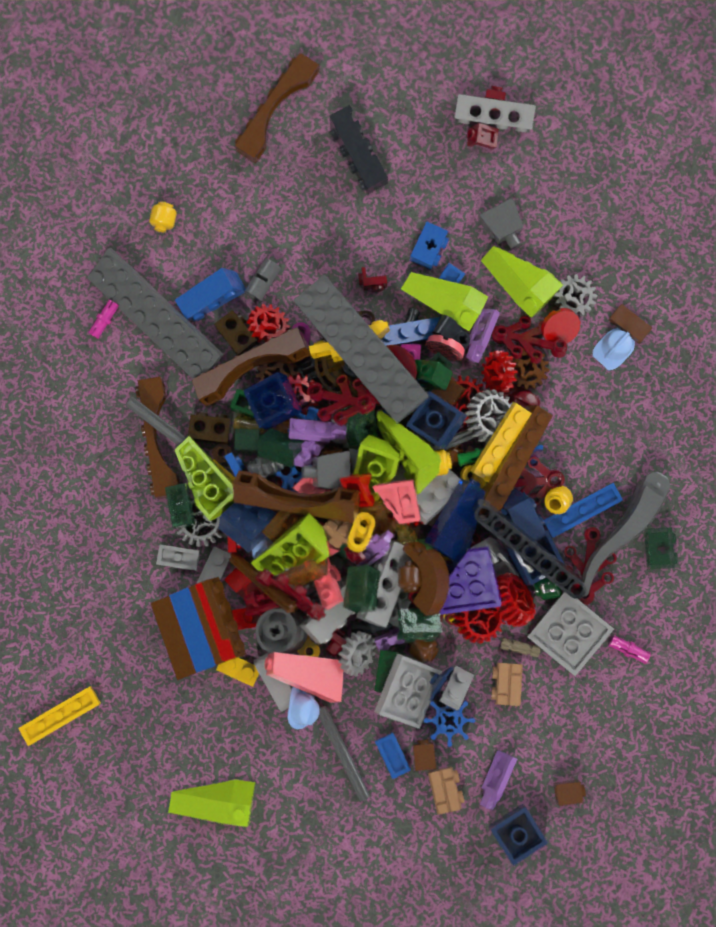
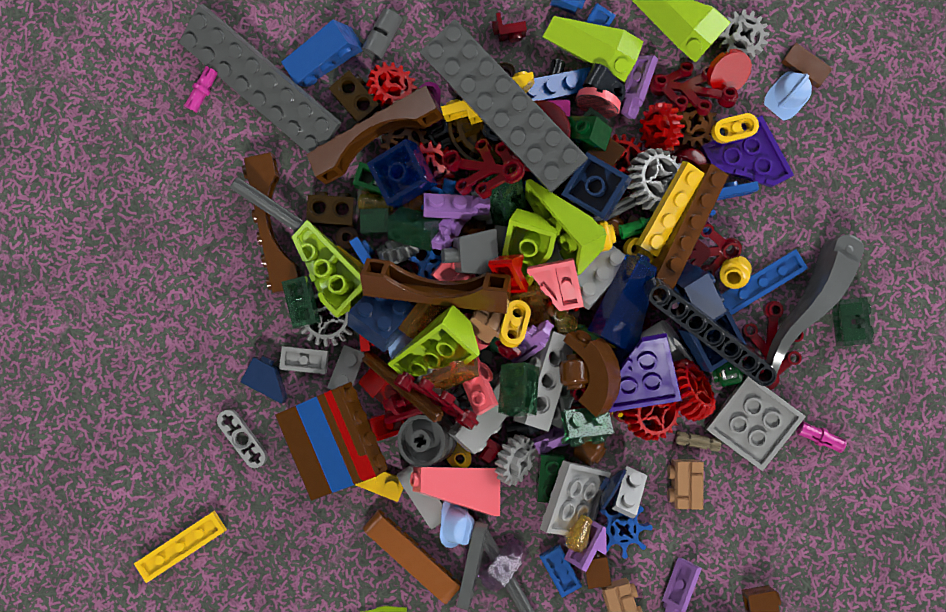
camera: 10 degrees left, 5 degrees up
(116, 608) = (233, 438): none -> light grey beam
(143, 571) = (265, 378): none -> dark blue slope
(262, 736) = (411, 557): none -> dark orange beam
(315, 745) = (472, 565): none -> dark grey beam
(342, 747) = (504, 565): none -> clear purple bracket
(408, 721) = (579, 534): none -> clear yellow cone
(418, 726) = (596, 543): none -> medium lavender slope
(561, 375) = (733, 128): none -> yellow plate
(561, 428) = (734, 190): none -> blue plate
(576, 398) = (751, 158): none -> dark purple plate

